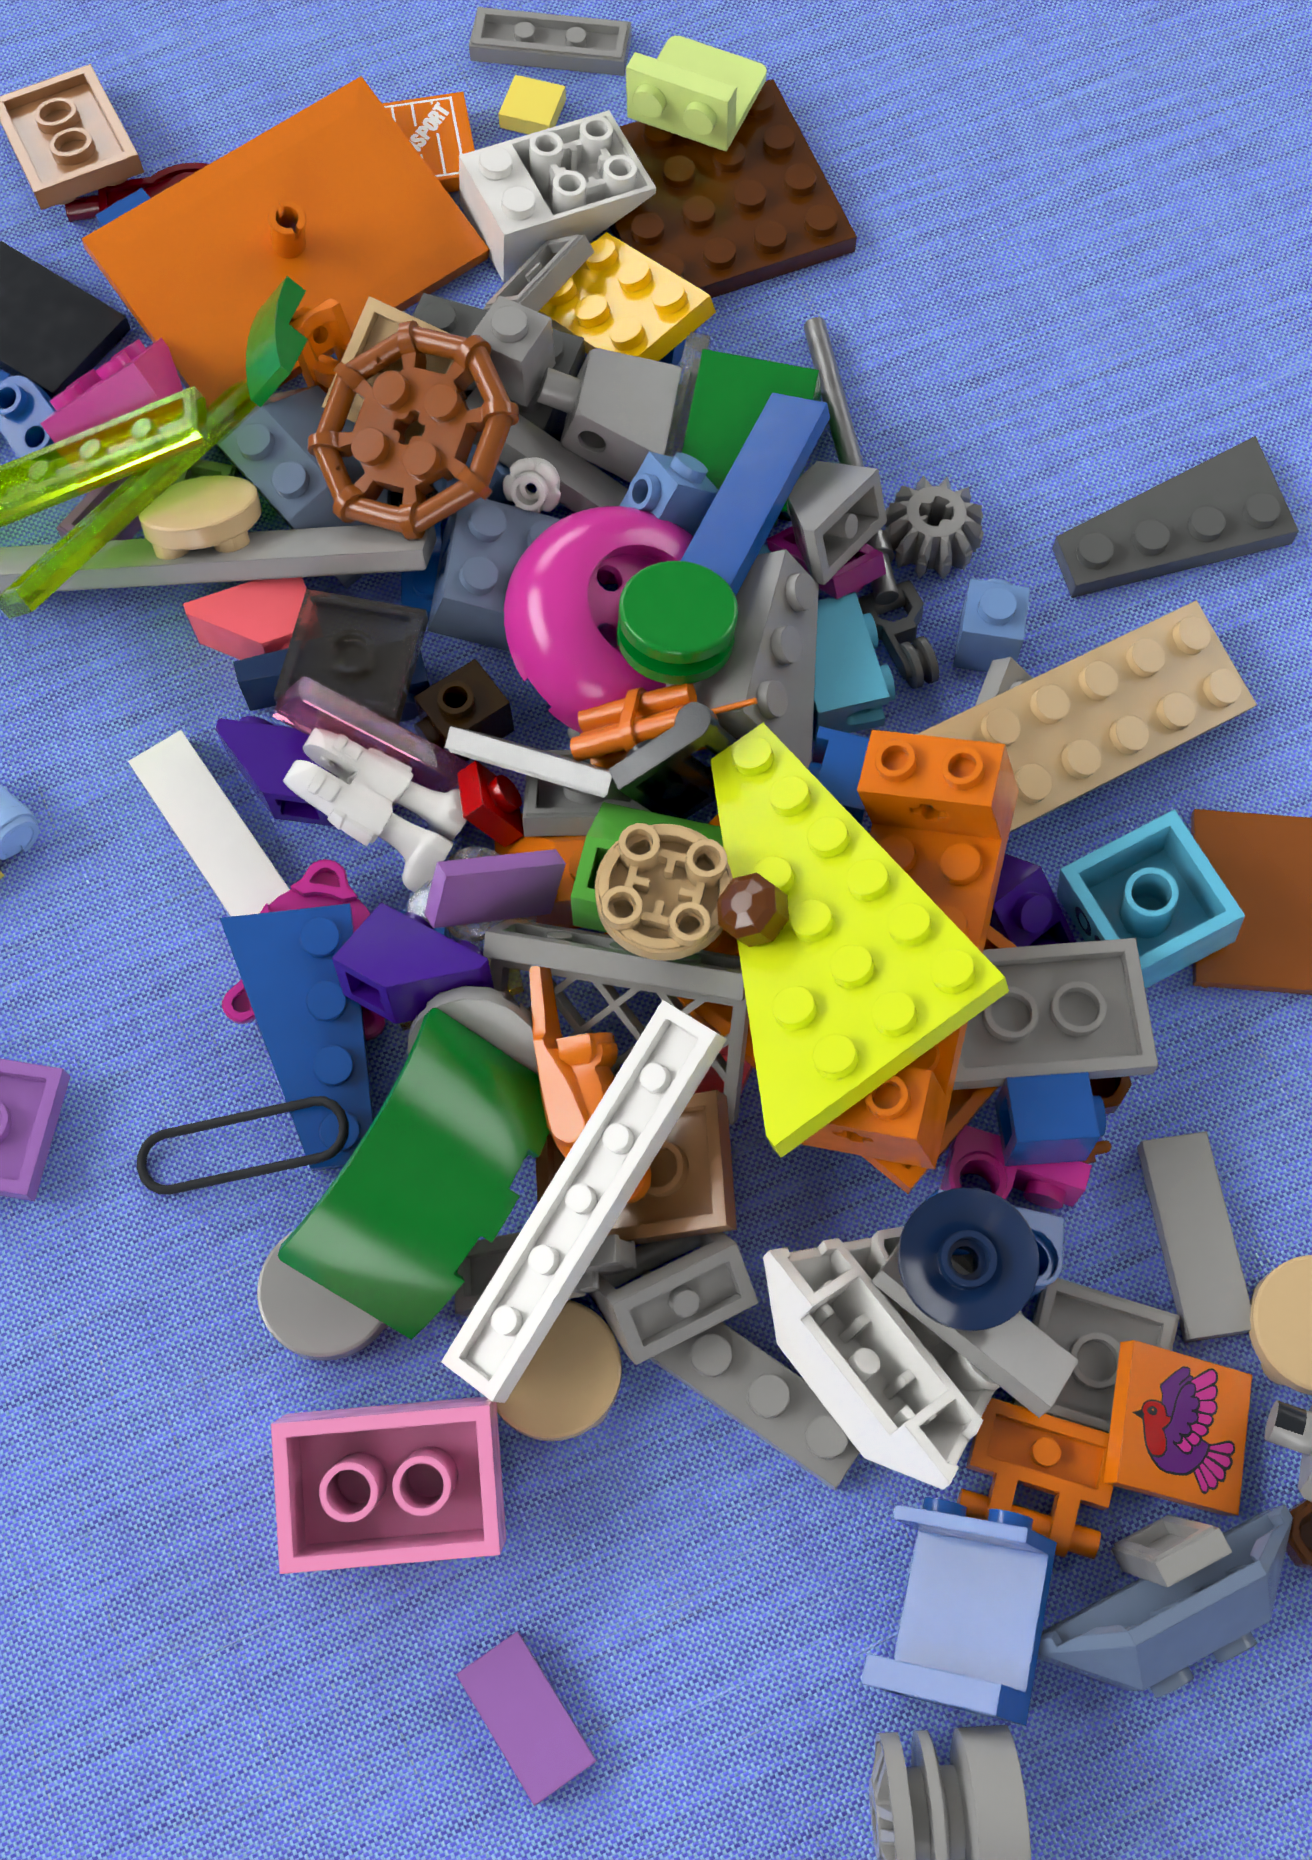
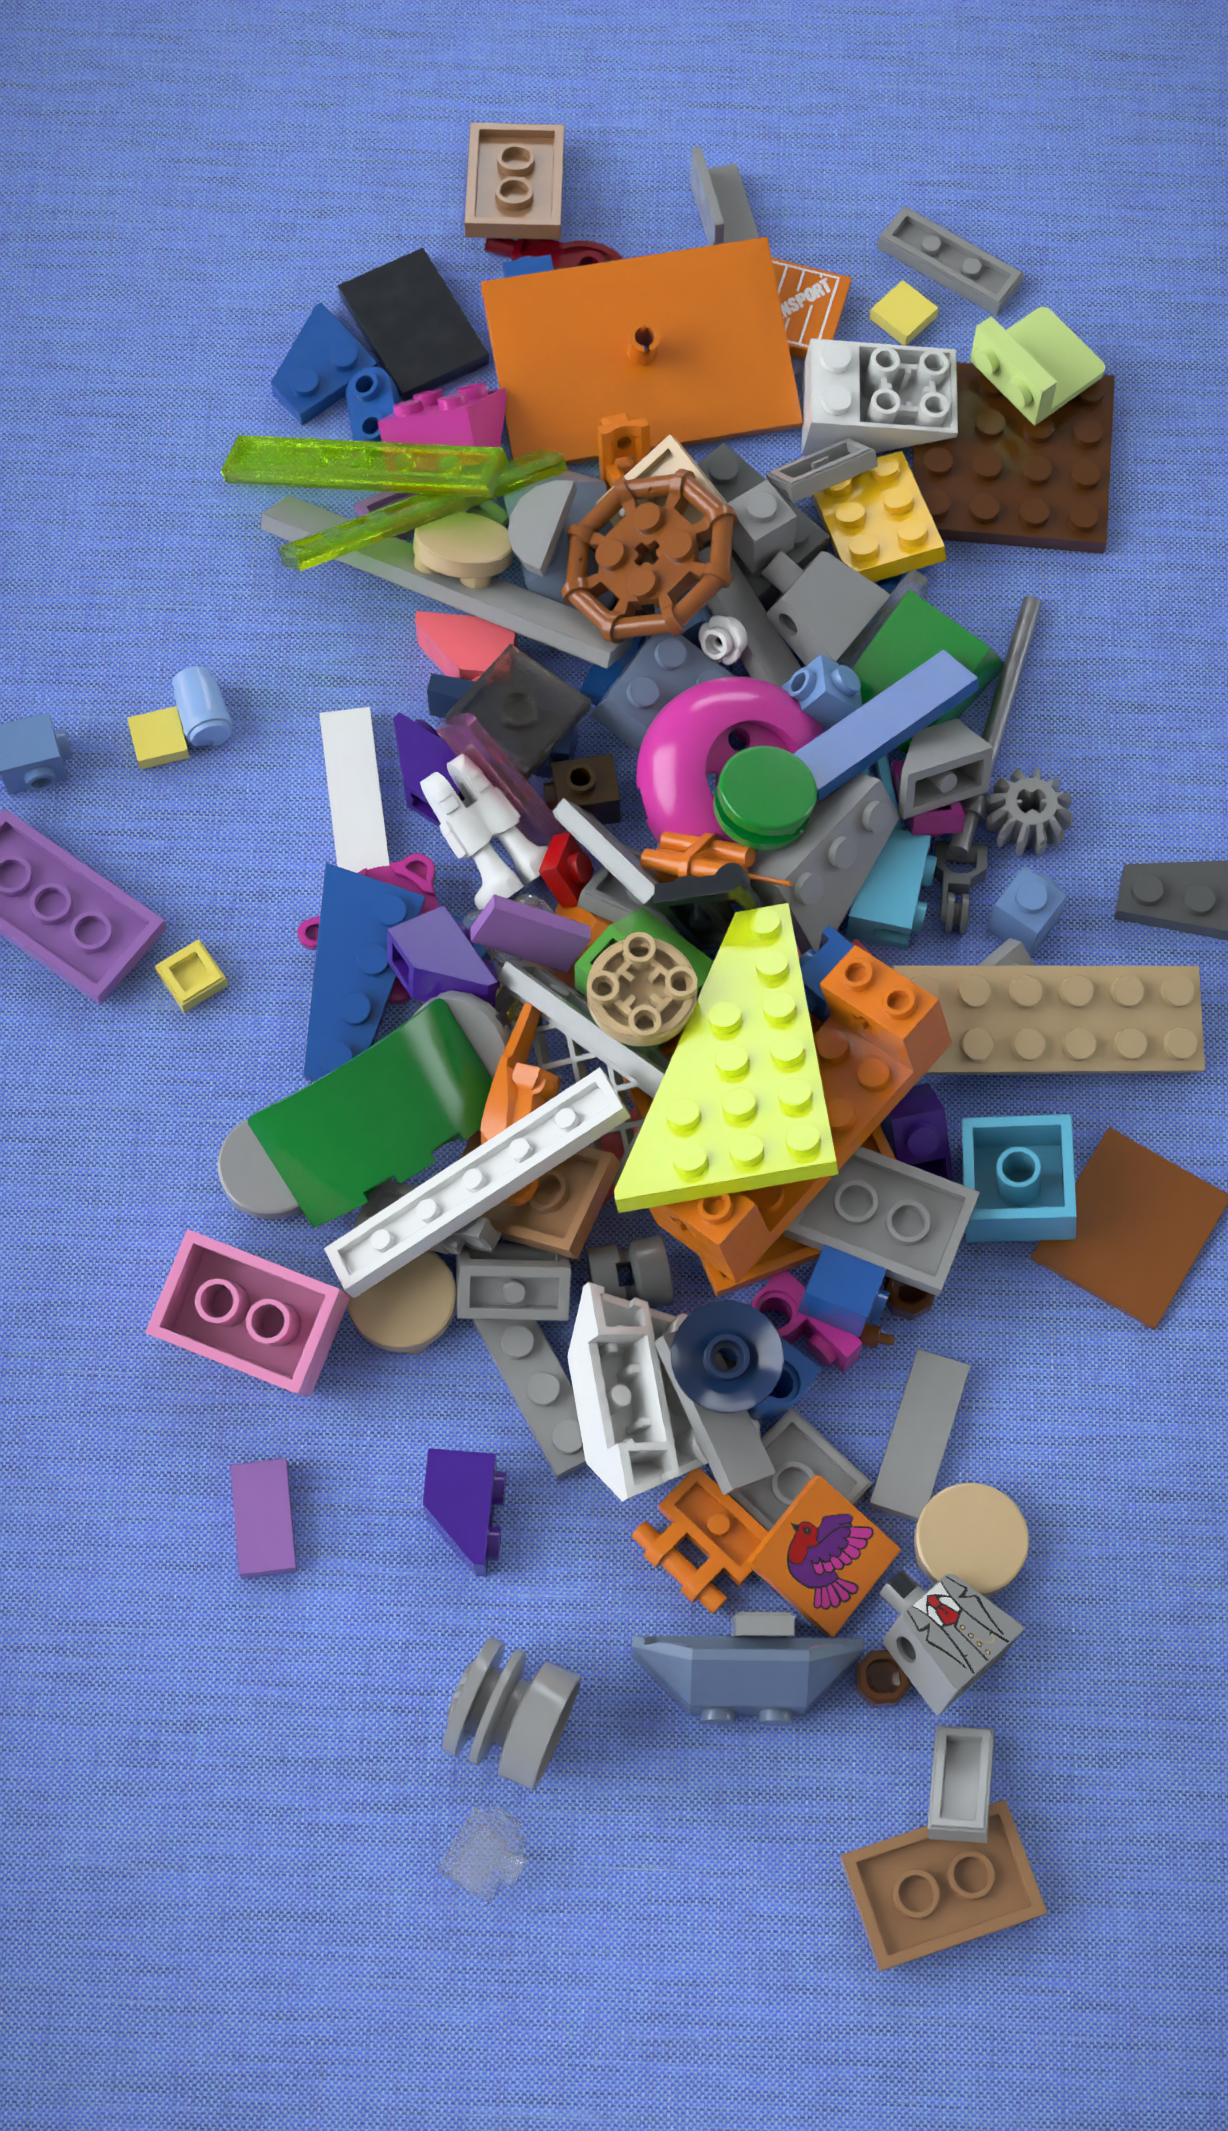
camera: 25 degrees right, 0 degrees up
(124, 1116) = (191, 975): none -> light yellow tile
(247, 1172) = (269, 1014): black piece -> none
(272, 450) = (539, 522): none -> light grey tile
(273, 343) = (582, 436): green slope -> none
(285, 70) = (721, 201): none -> light grey panel
(748, 1579) = (461, 1502): none -> dark purple slope
(752, 909) = (694, 1033): reddish brown tile -> none
(813, 1201) = (647, 1268): none -> dark grey wheel
(969, 1612) = (602, 1597): panel -> none

